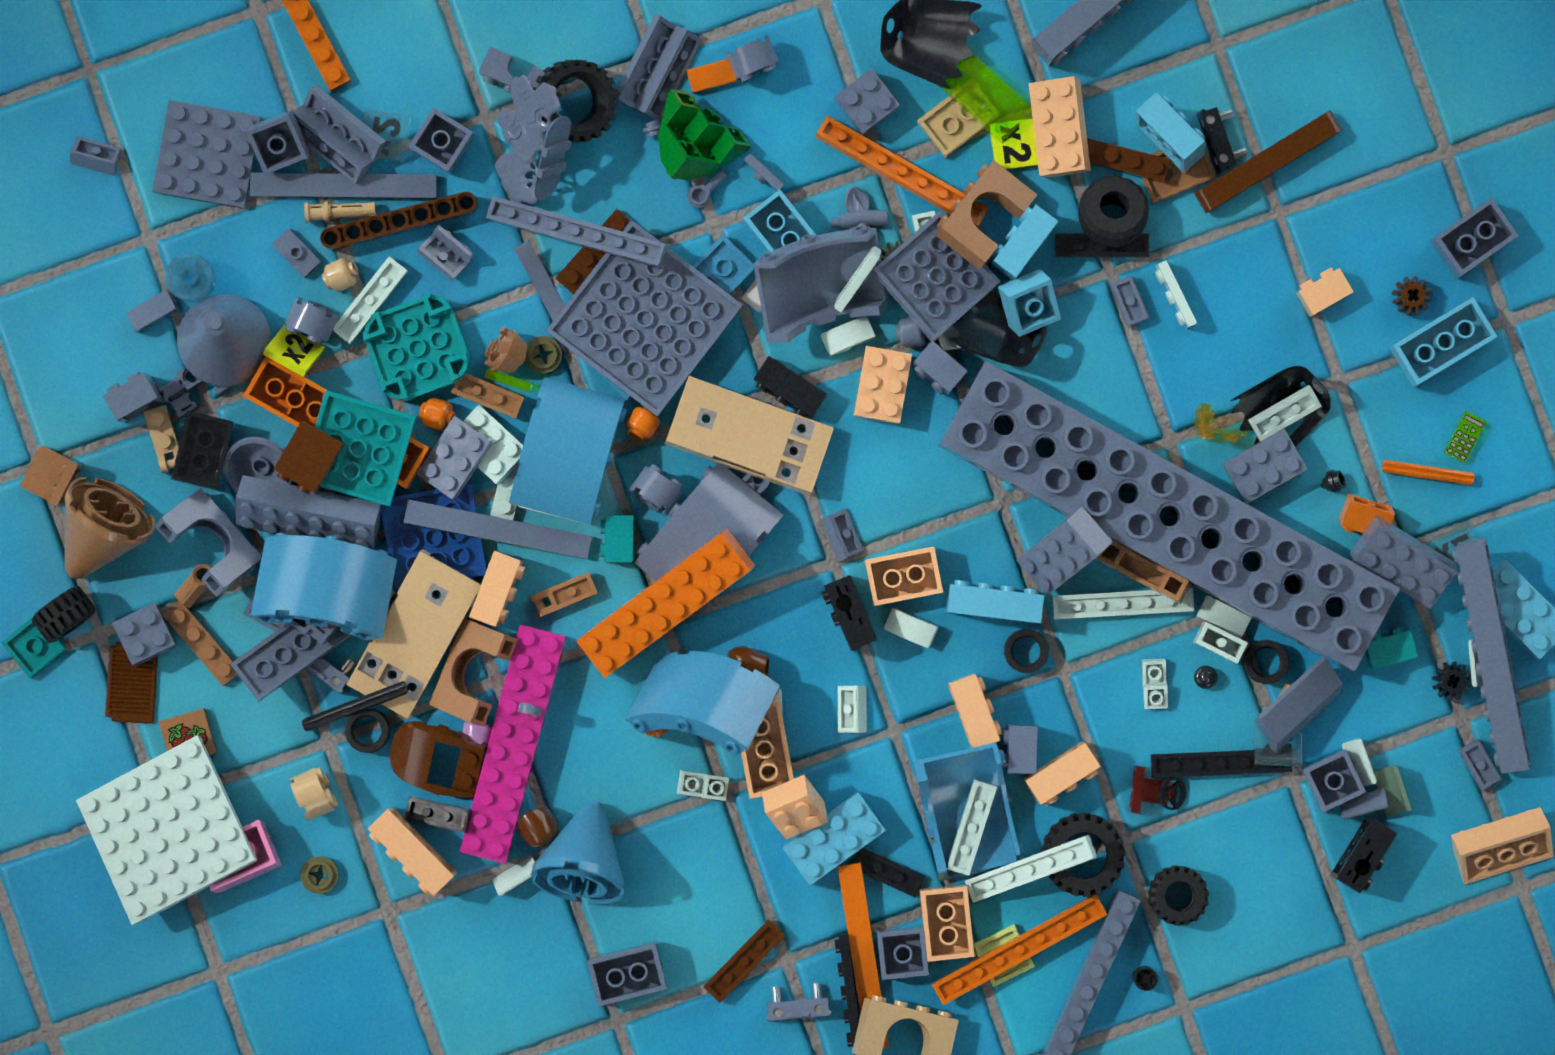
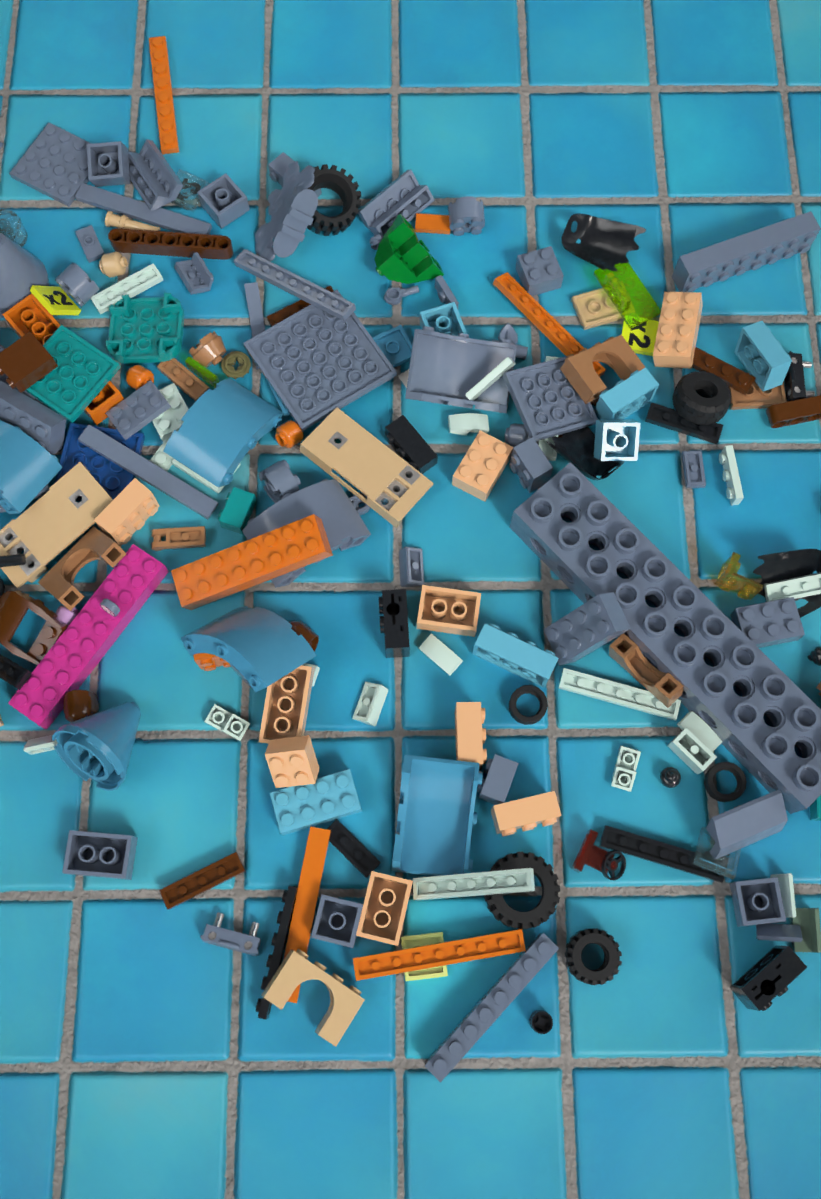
camera: 15 degrees right, 15 degrees down
(971, 827) = (434, 832): light aqua plate -> none

